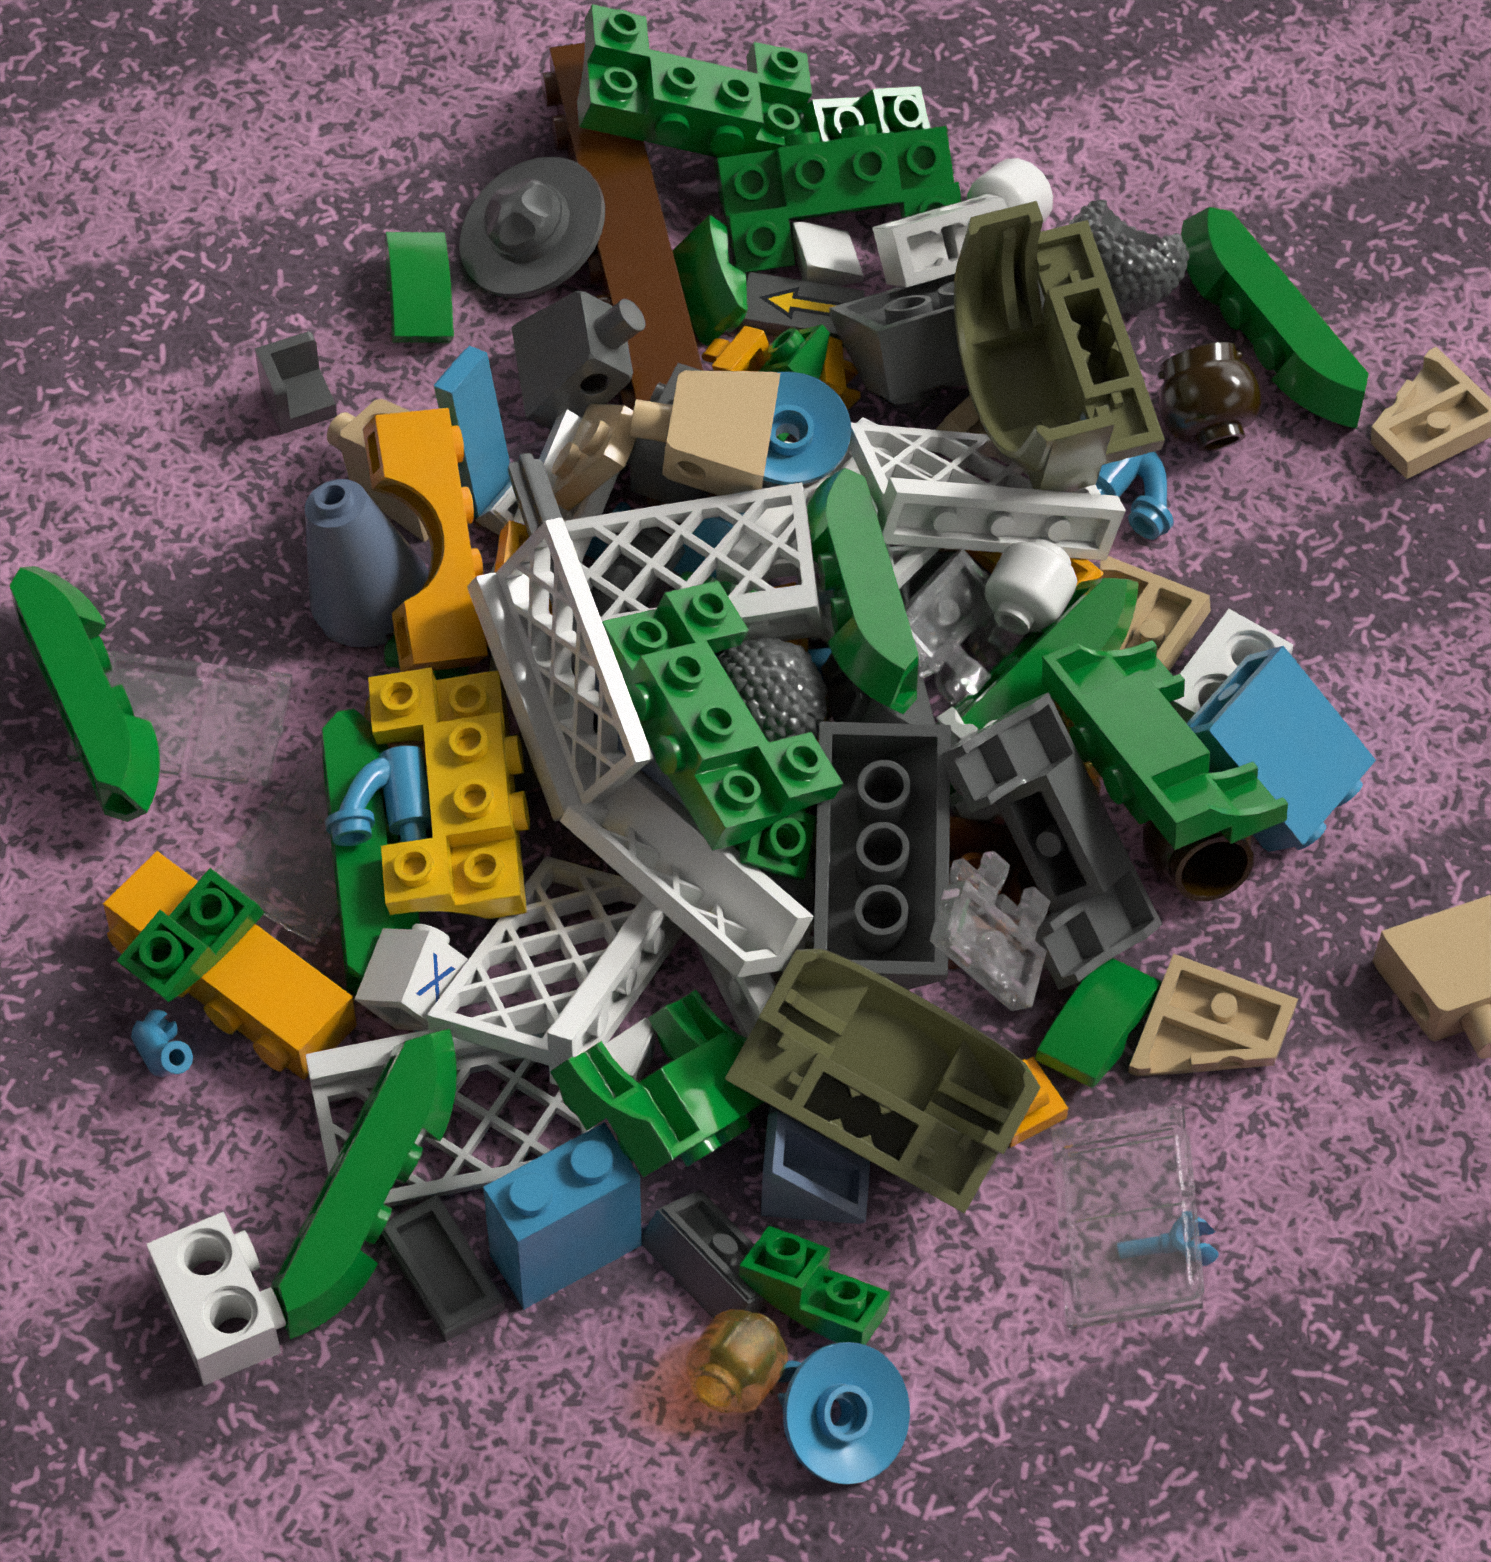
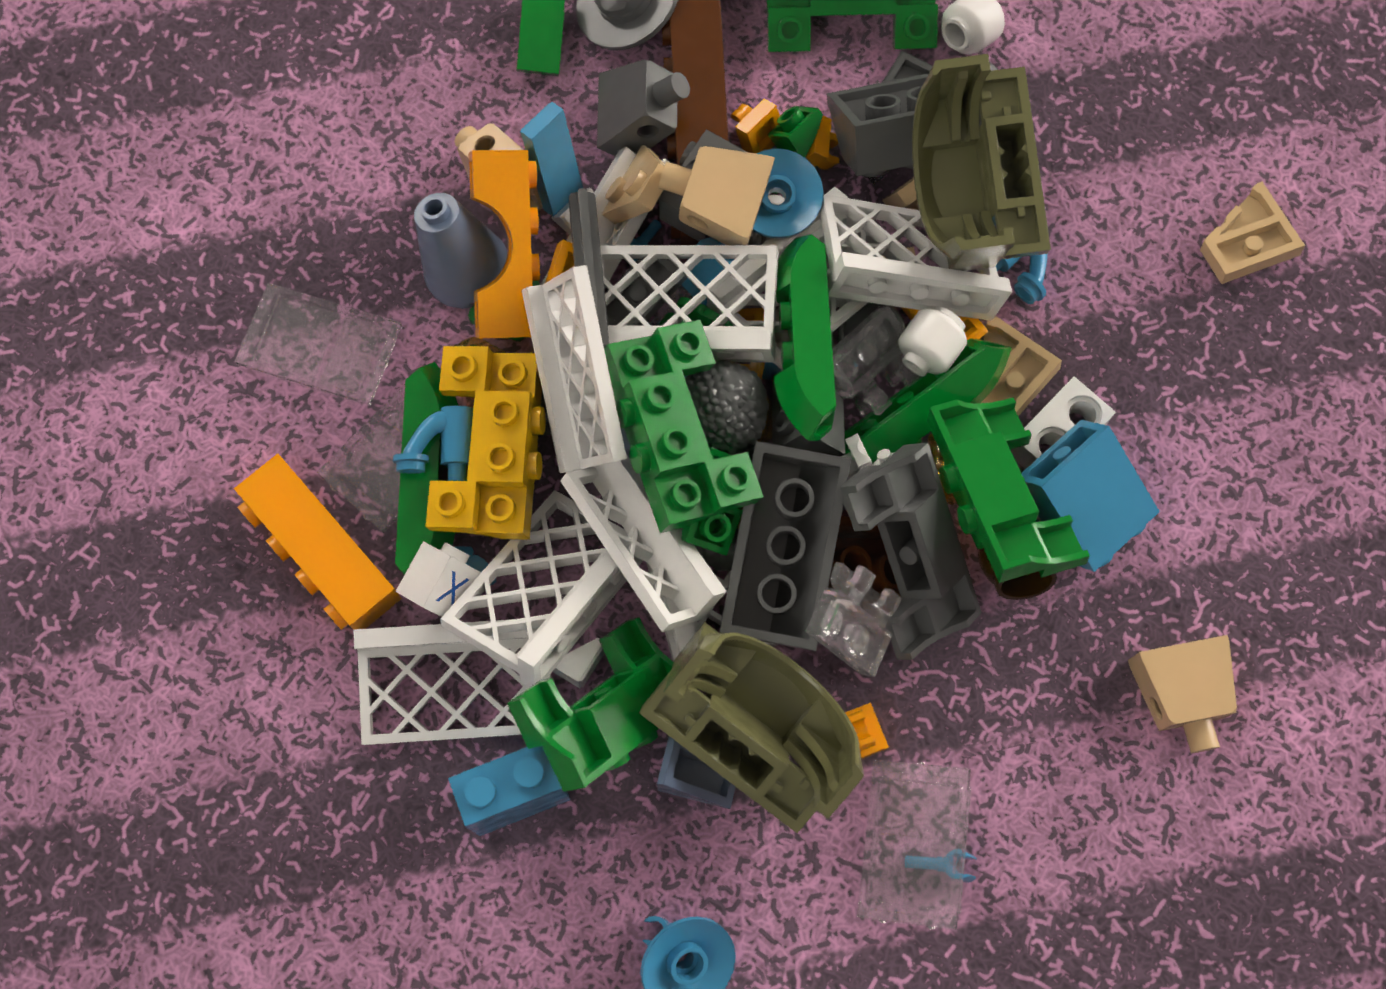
camera: 10 degrees right, 15 degrees up
(111, 742) = (241, 274): green brick -> none
(153, 1045) = (258, 602): dark azure arm -> none
(190, 941) = (288, 529): green slope -> none
(208, 1300) = (251, 805): white brick -> none
(294, 383) = (440, 95): dark grey panel -> none
(325, 1259) = (415, 682): green brick -> none
(441, 1268) = (427, 797): dark grey tile -> none
(702, 1253) = (619, 822): dark grey slope -> none
(710, 285) = (745, 61): green slope -> none
(736, 1361) = (618, 910): clear yellow head -> none
(786, 303) = (803, 83): dark grey tile -> none
(797, 1281) = (679, 861): green slope -> none
(825, 255) = (833, 46): white slope -> none
(929, 242) = (910, 51): white brick -> none
(1097, 1020) = (921, 685): green slope -> none
(1136, 262) = (1054, 86): dark grey hair -> none
(1208, 396) = (1089, 201): dark brown piece -> none
(1211, 1023) = (1002, 696): tan wing -> none
(1274, 315) = (1153, 151): green brick -> none

